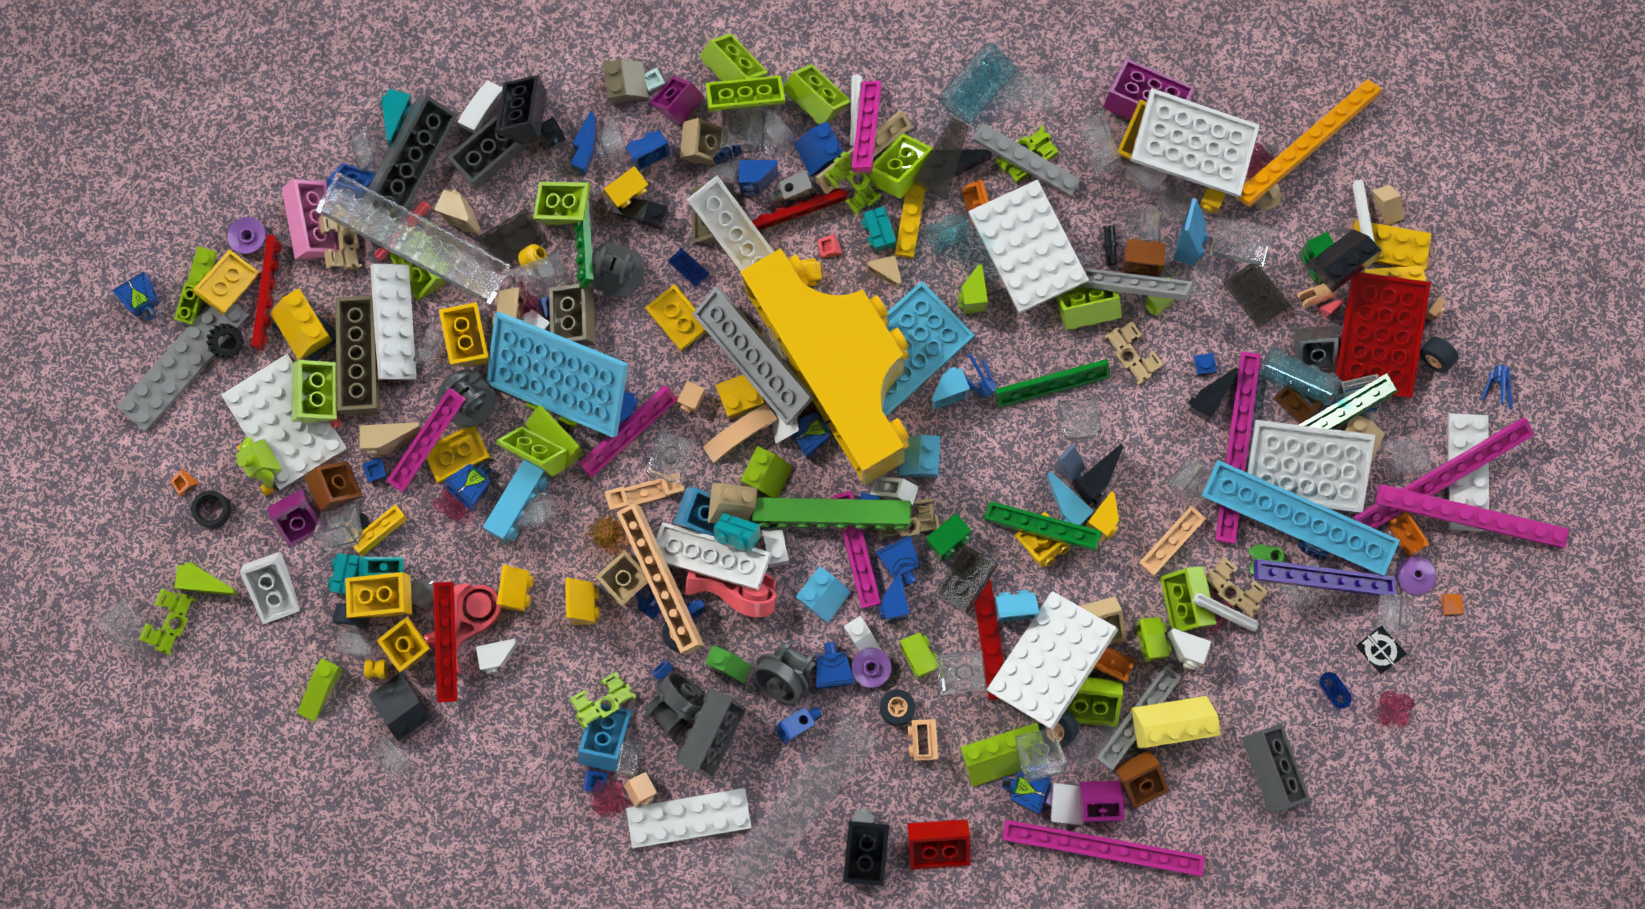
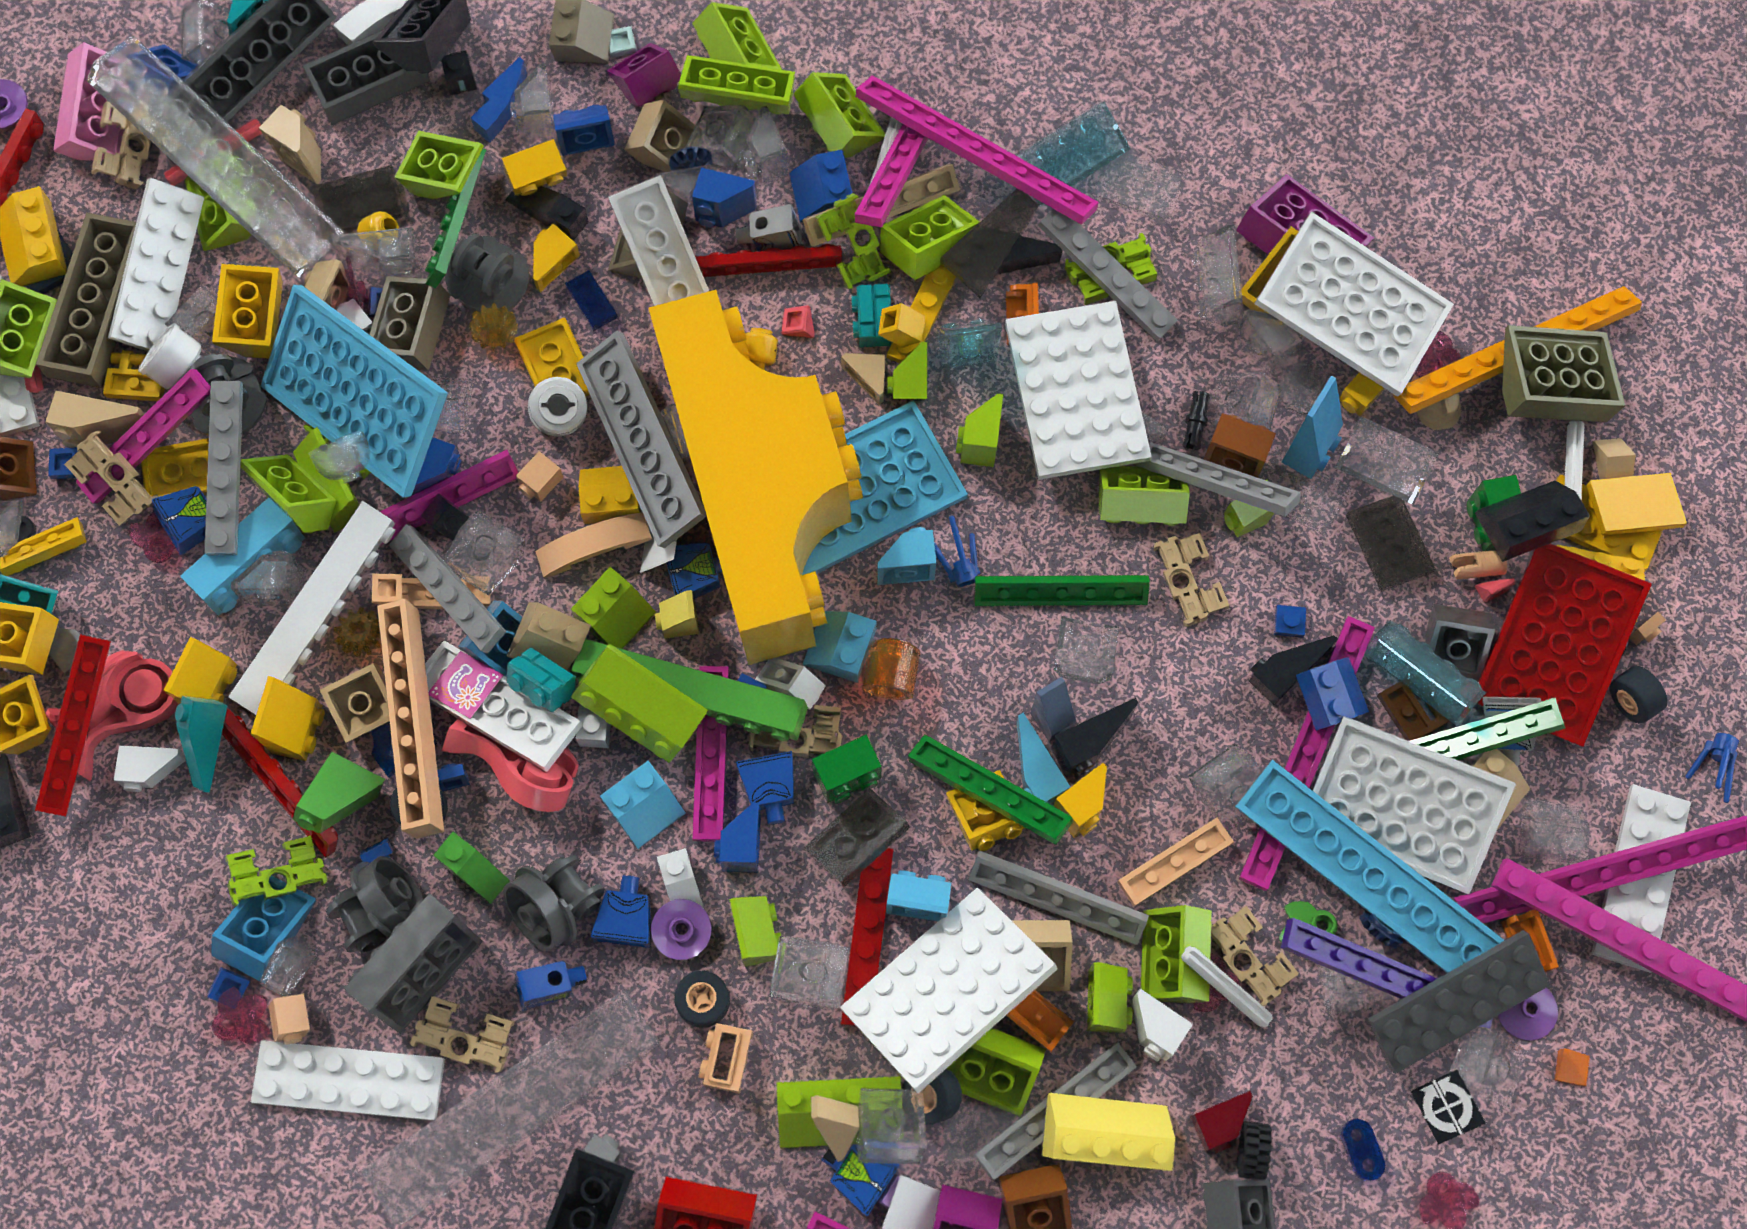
camera: 10 degrees right, 5 degrees down
(403, 404) = (128, 382): none -> yellow plate
(425, 382) = (170, 357): none -> white wheel
(428, 479) = (92, 459): none -> tan piece
(490, 448) = (224, 468): none -> light grey plate
(526, 623) = (200, 733): none -> teal slope
(566, 422) = (342, 458): none -> clear cylinder
(572, 524) = (316, 604): none -> white brick
(582, 642) = (272, 776): none -> red plate
(626, 639) = (336, 793): none -> bright green slope
(630, 304) = (493, 326): none -> clear yellow gear
(639, 441) = (445, 516): none -> black brick
(653, 243) = (552, 255): none -> yellow slope
(656, 488) = (447, 588): none -> light grey plate
(686, 547) = (465, 684): none -> dark pink sticker
(689, 346) = (557, 406): none -> white wheel
(769, 777) = (486, 1051): none -> tan piece
(804, 530) = (639, 703): none -> lime slope
(810, 466) = (677, 616): none -> light yellow slope
(901, 233) = (901, 325): none -> yellow brick
(915, 265) = (910, 376): none -> lime slope
(917, 98) = (977, 149): none -> dark pink plate
(958, 464) = (891, 669): none -> clear orange piece
(1006, 762) = (836, 1122): none -> tan slope
(1104, 583) = (1058, 897): none -> light grey plate
(1243, 697) = (1221, 1122): none -> dark red slope
(1244, 406) = (1332, 693): none -> blue slope
(1268, 709) = (1254, 1150): none -> black tyre
(1339, 153) = (1560, 374): none -> olive slope
(1372, 582) = (1459, 1002): none -> dark grey plate
(1409, 227) = (1636, 504): none -> yellow tile

